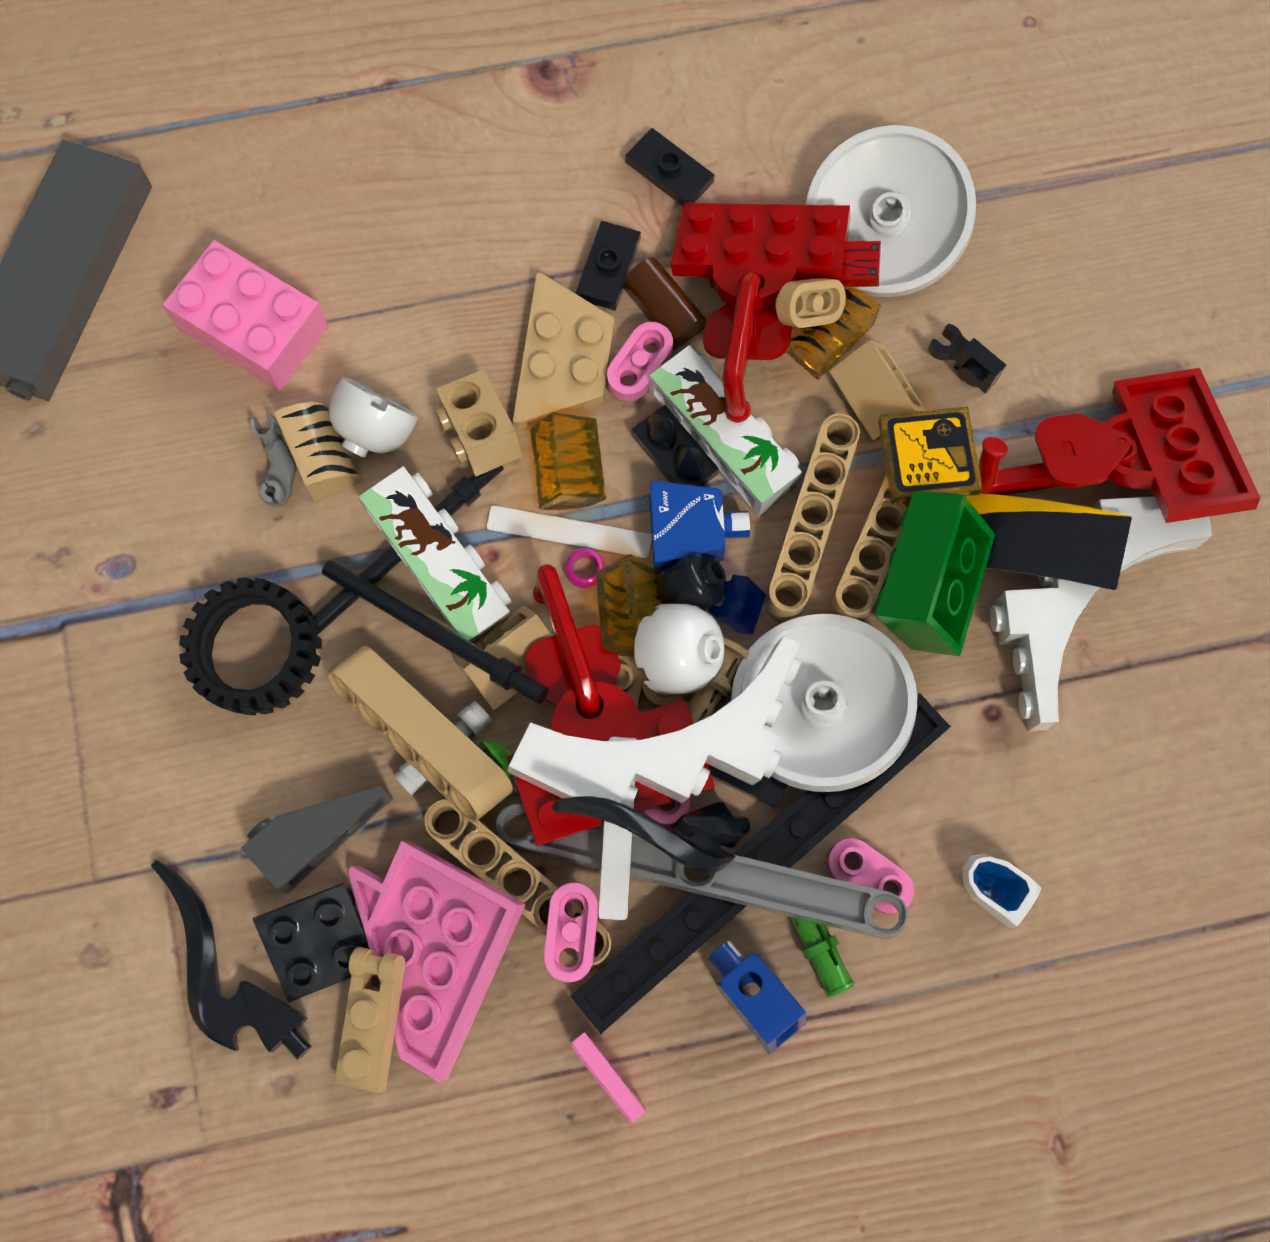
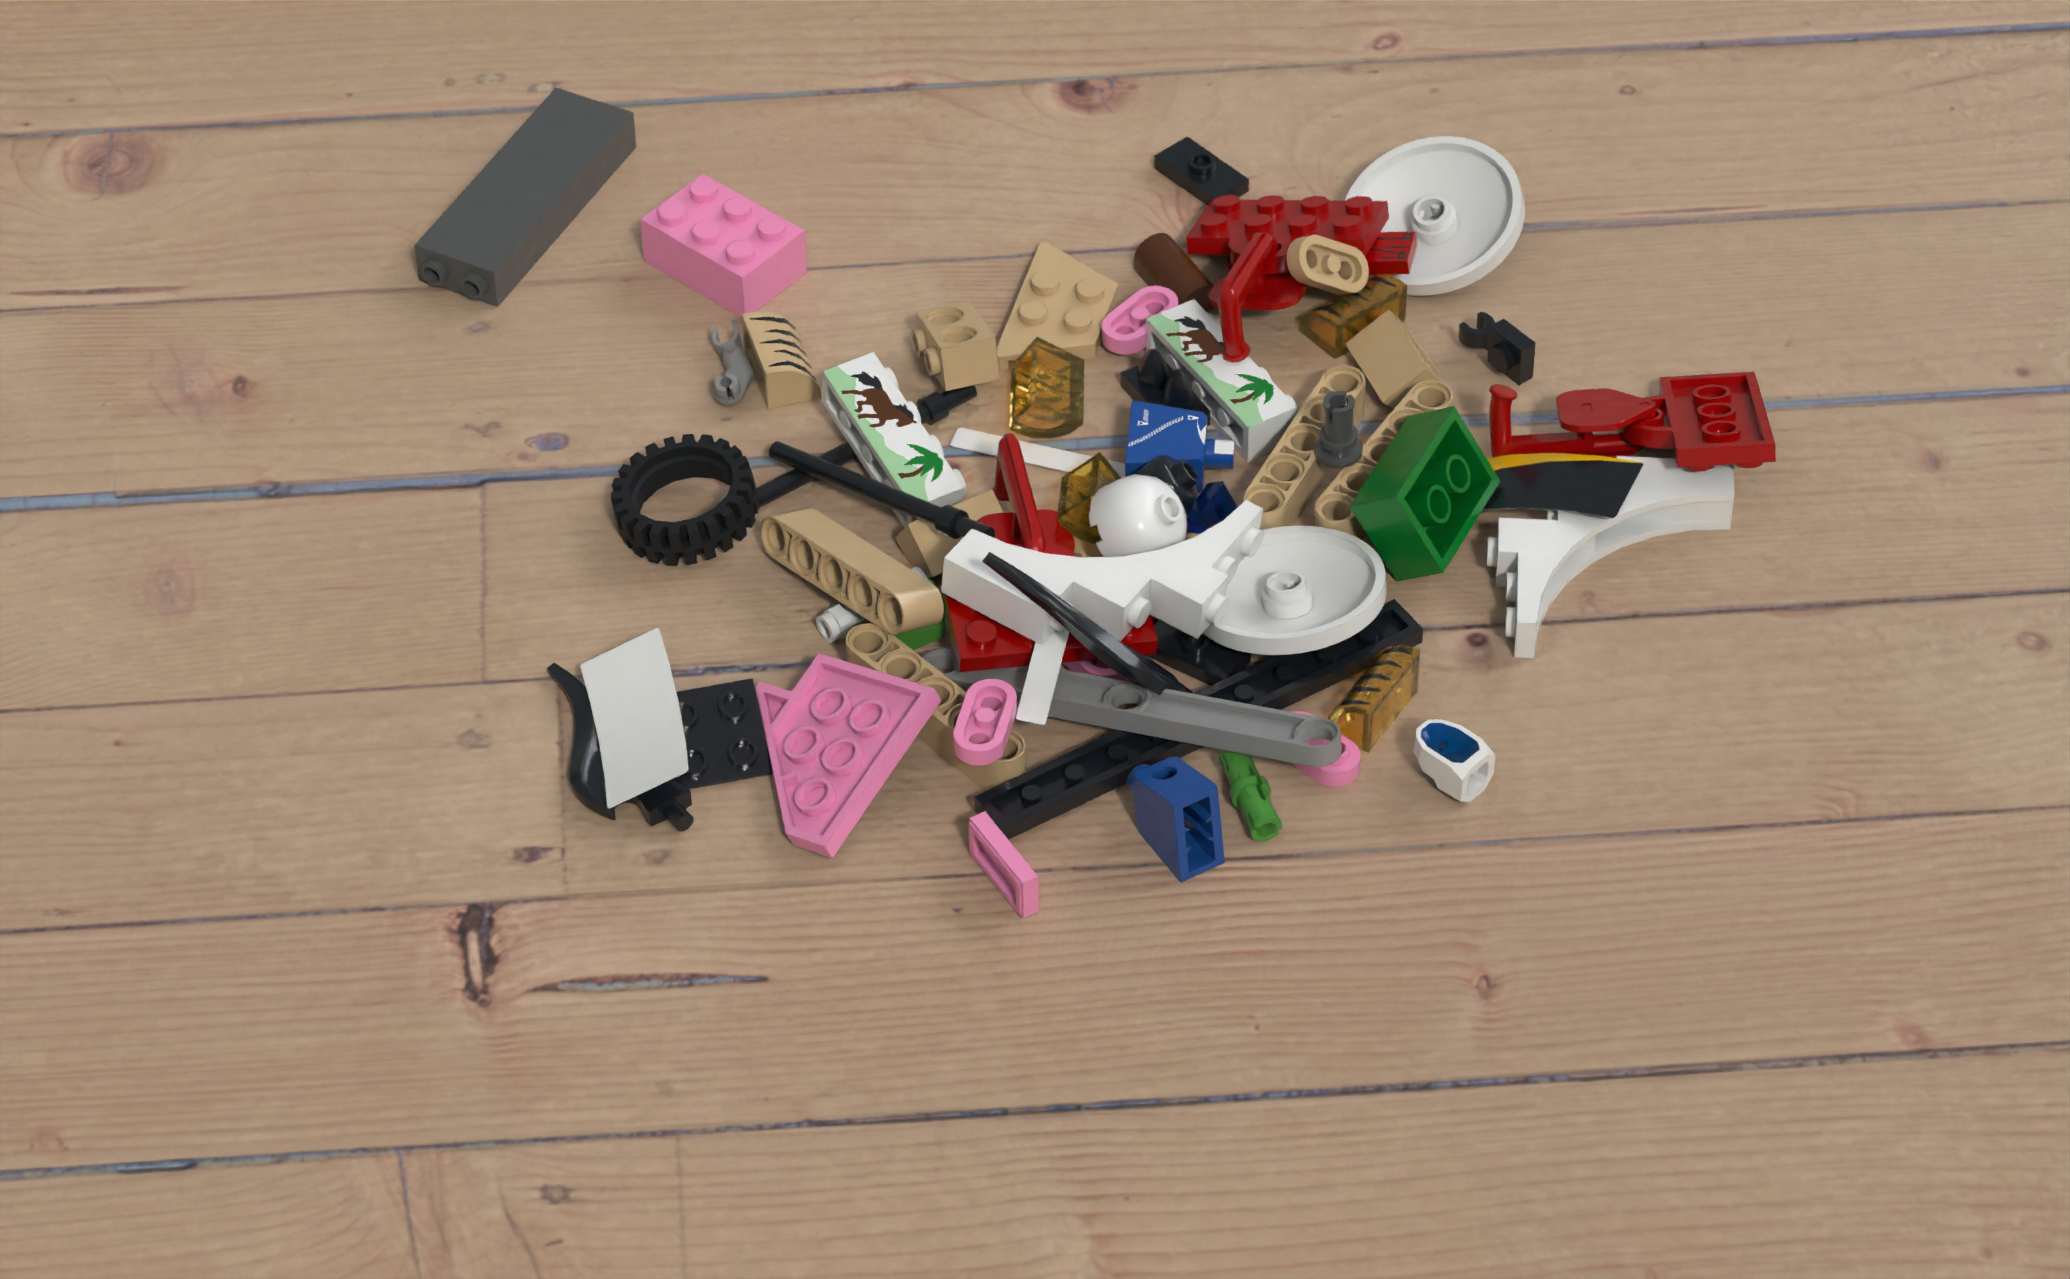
camera: 10 degrees right, 30 degrees down
(241, 951) = (636, 717): none -> white sticker
(304, 838) = (734, 646): dark grey slope -> none
(368, 419) = (840, 330): white cylinder -> none
(370, 1020) = (760, 796): tan plate -> none
(573, 558) = (1043, 472): dark pink piece -> none
(608, 265) = (1117, 242): black plate -> none
(850, 521) = (1338, 438): none -> dark grey pin
(916, 814) = (1378, 696): none -> clear yellow brick
(929, 453) = (1435, 385): tile -> none

